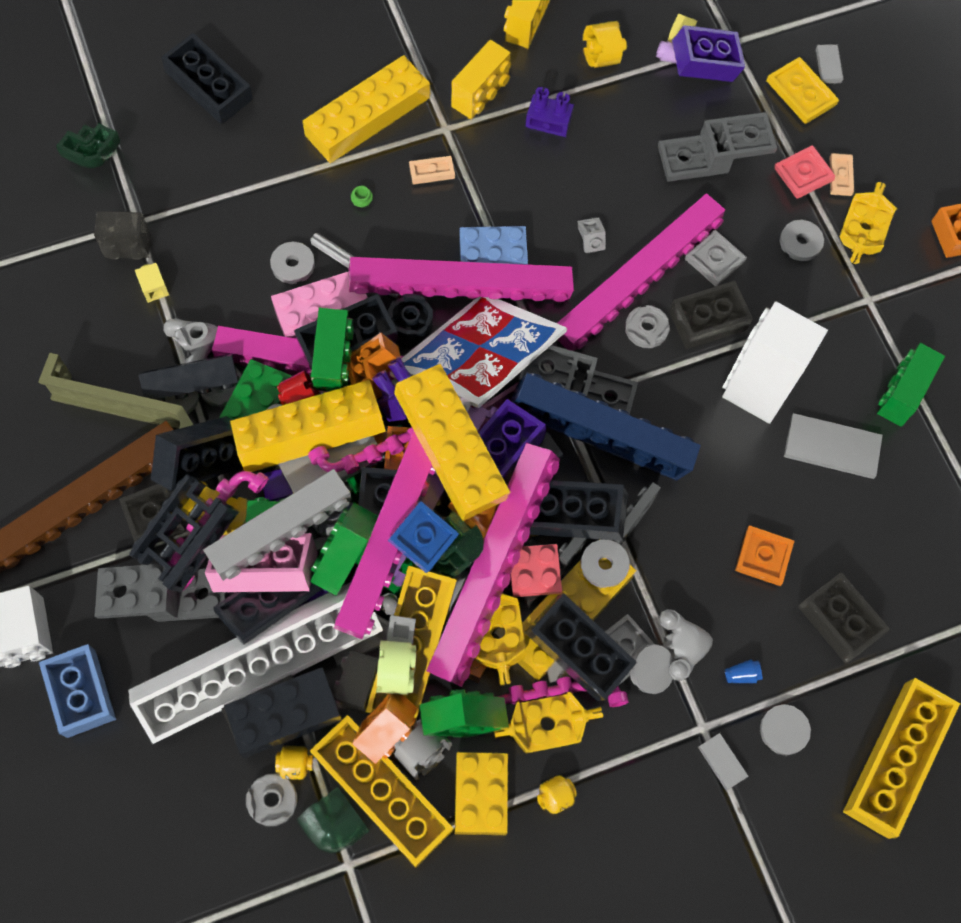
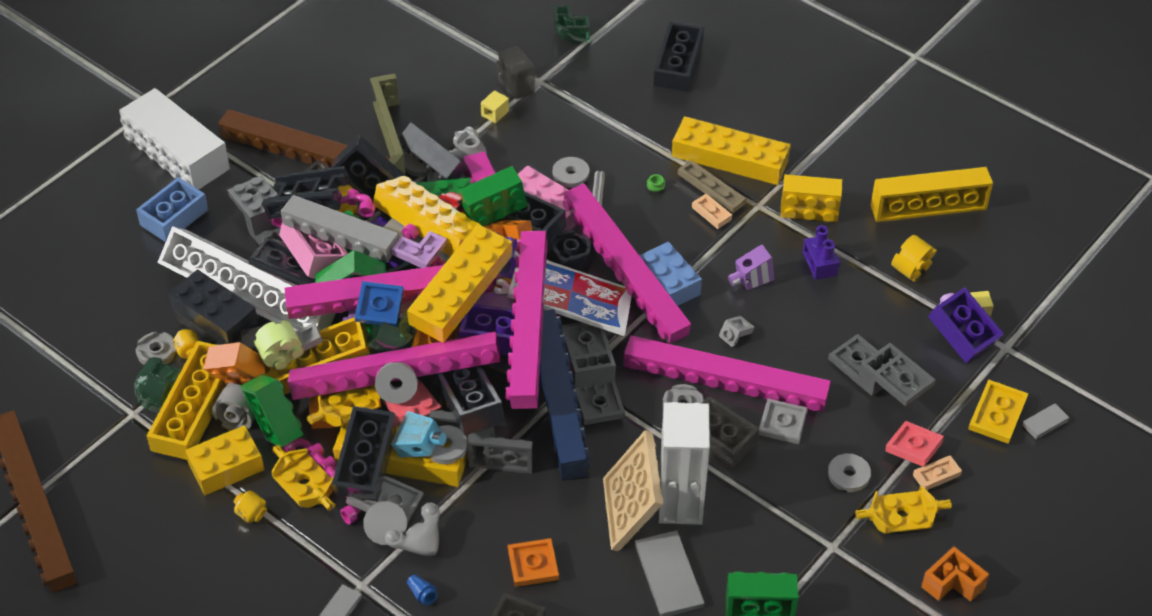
camera: 65 degrees right, 20 degrees down
(368, 458) = (421, 253): none -> lavender plate
(399, 151) = (712, 186): none -> dark tan plate
(524, 561) = (396, 394): none -> light grey tile
(532, 402) = (528, 320): none -> dark pink brick
(535, 177) = (753, 269): none -> medium lavender torso
(591, 584) = (417, 436): none -> medium azure torso
(755, 424) = (632, 491): none -> tan plate

